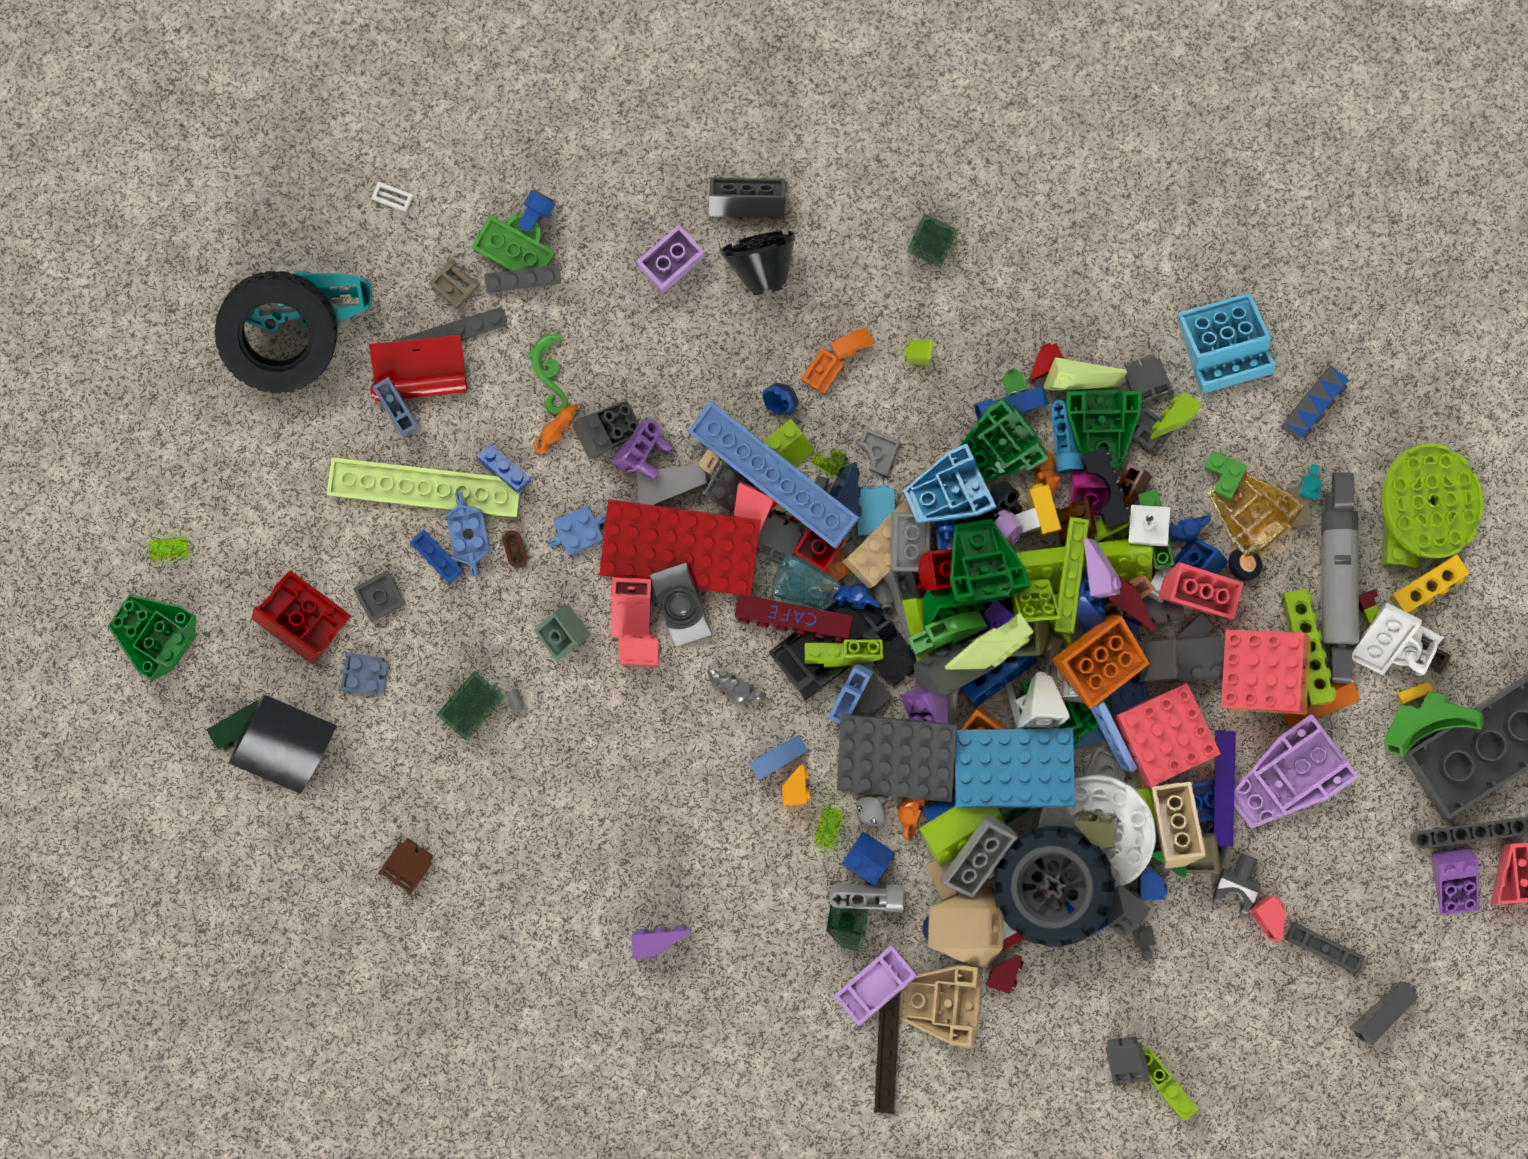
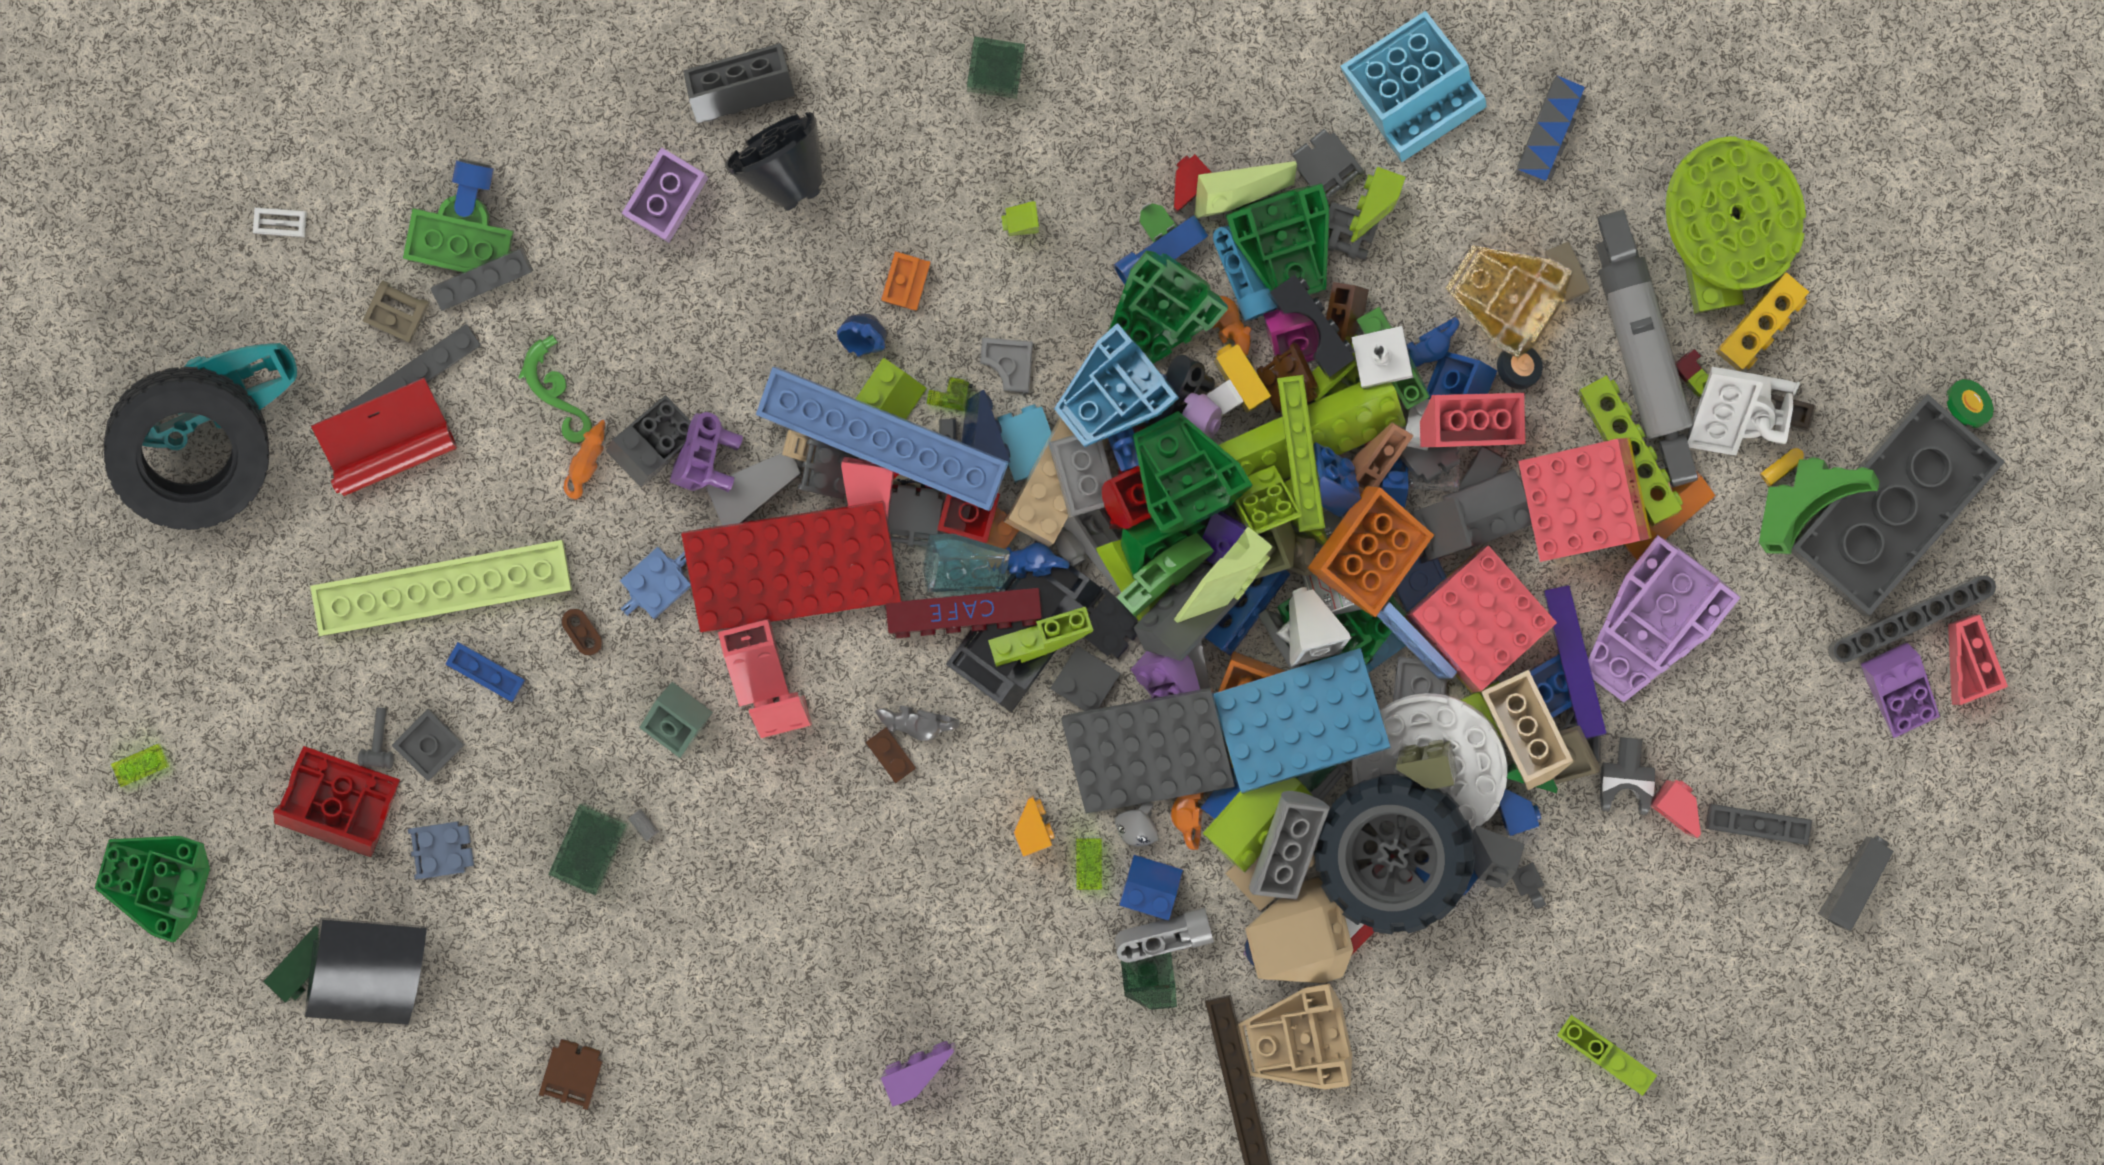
camera: 10 degrees left, 5 degrees up
(339, 594) = (376, 756): none -> dark grey piece
(396, 407) = (373, 497): sand blue slope -> none
(464, 549) = (518, 651): medium blue plate -> none
(503, 468) = (535, 532): plate -> none
(680, 604) = (815, 638): dark grey slope -> none
(708, 705) = (890, 755): none -> reddish brown plate
(778, 757) = (999, 795): medium blue slope -> none
(848, 344) = (927, 236): orange slope -> none
(851, 692) = (1066, 684): medium blue slope -> none
(875, 985) = (1207, 1044): lavender slope -> none
(1003, 974) = (1364, 980): dark red slope -> none
(1101, 574) = (1337, 439): lavender slope -> none
(1127, 1060) = (1550, 1041): dark grey plate -> none
(1132, 604) = (1382, 460): dark red slope -> none
(1230, 472) = (1467, 253): bright green plate -> none
(1310, 485) = (1575, 240): teal plate -> none

